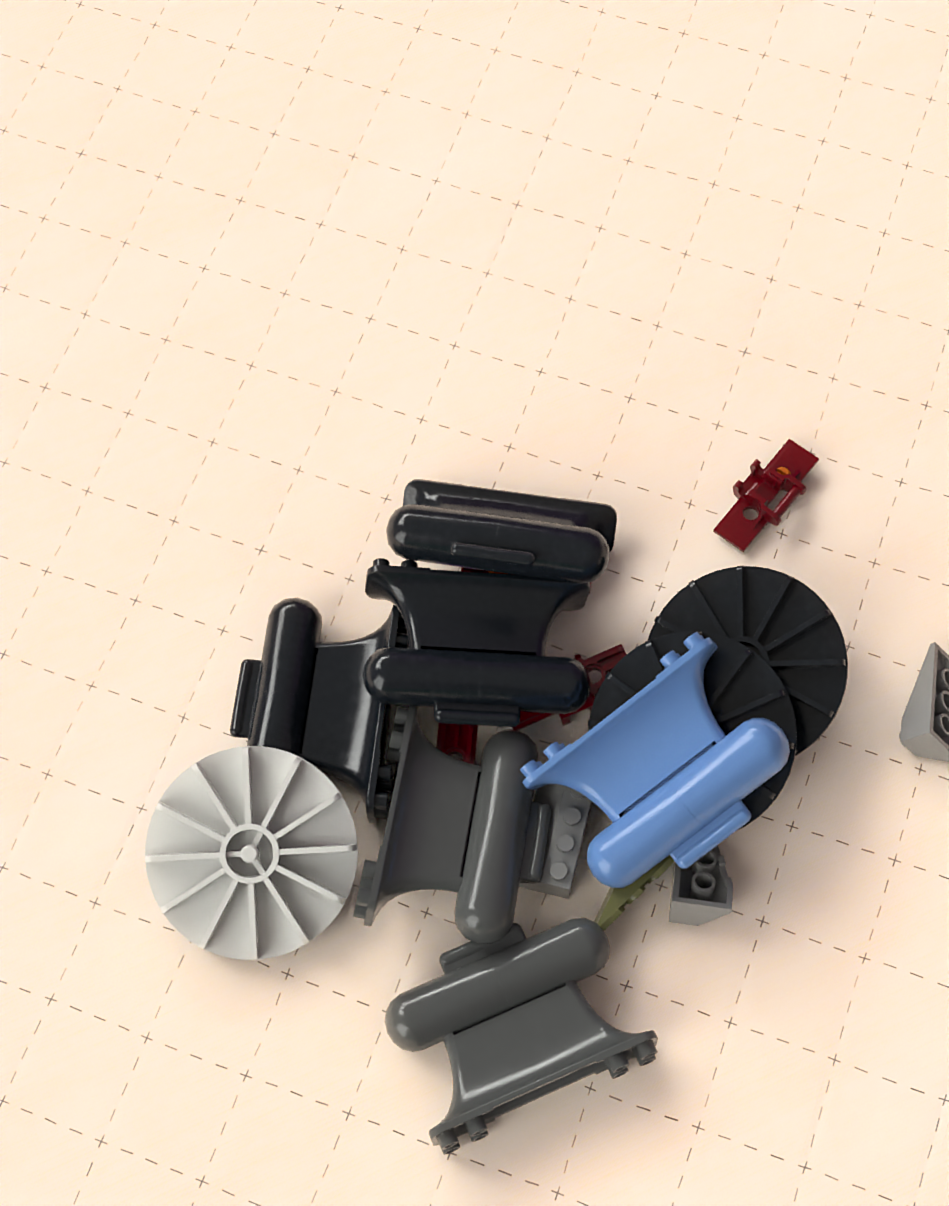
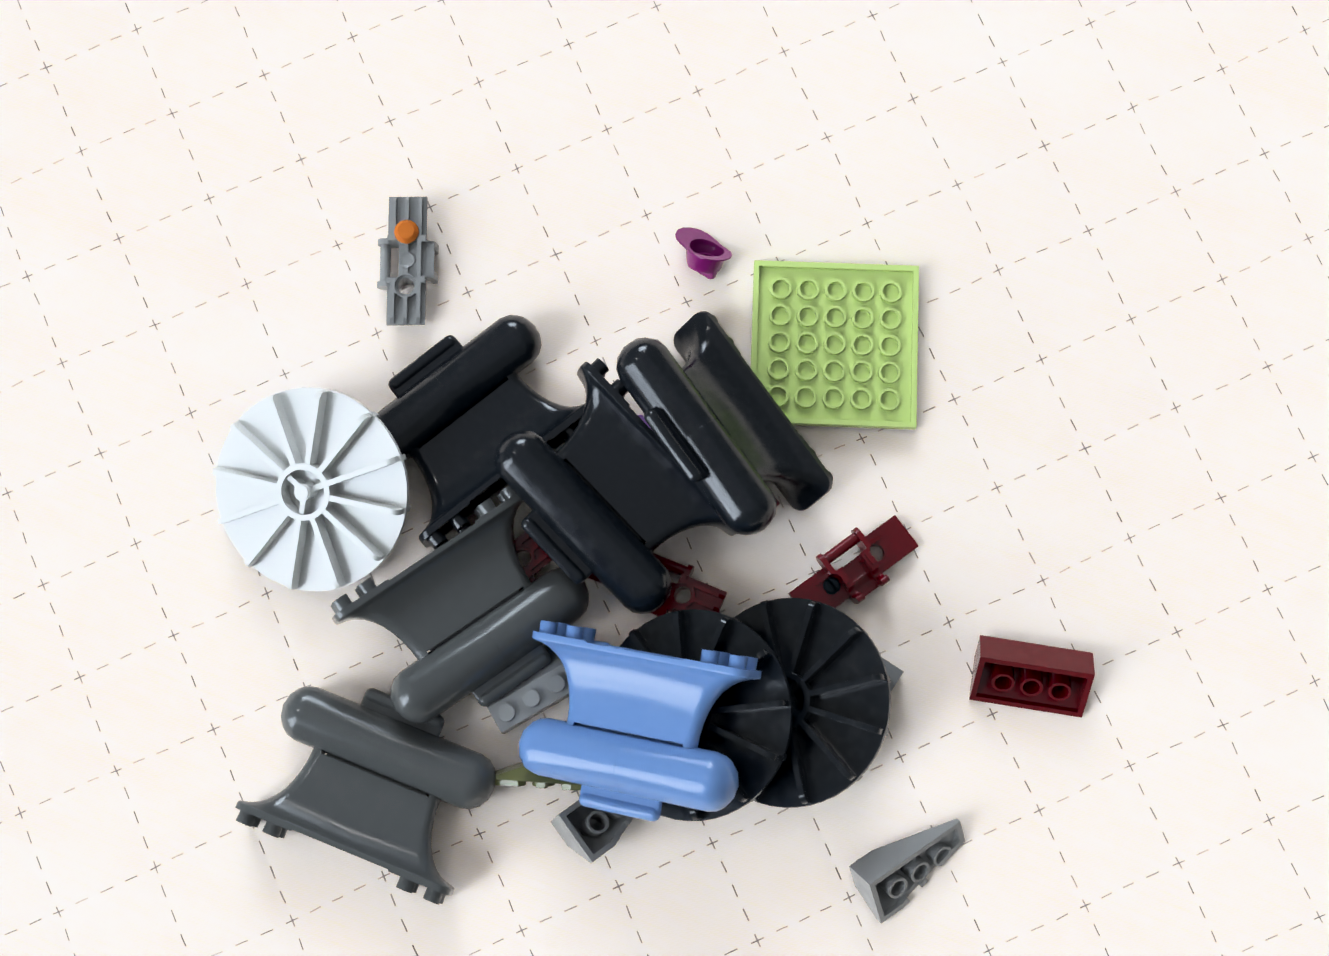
camera: 45 degrees right, 15 degrees up
(164, 637) = (416, 261): none -> light grey piece
(366, 456) = (702, 251): none -> magenta piece
(516, 427) = (837, 342): none -> yellowish green plate
(694, 551) = (862, 573): none -> dark red piece
(760, 488) = (968, 572): dark red piece -> none
(873, 512) = (1031, 676): none -> dark red slope

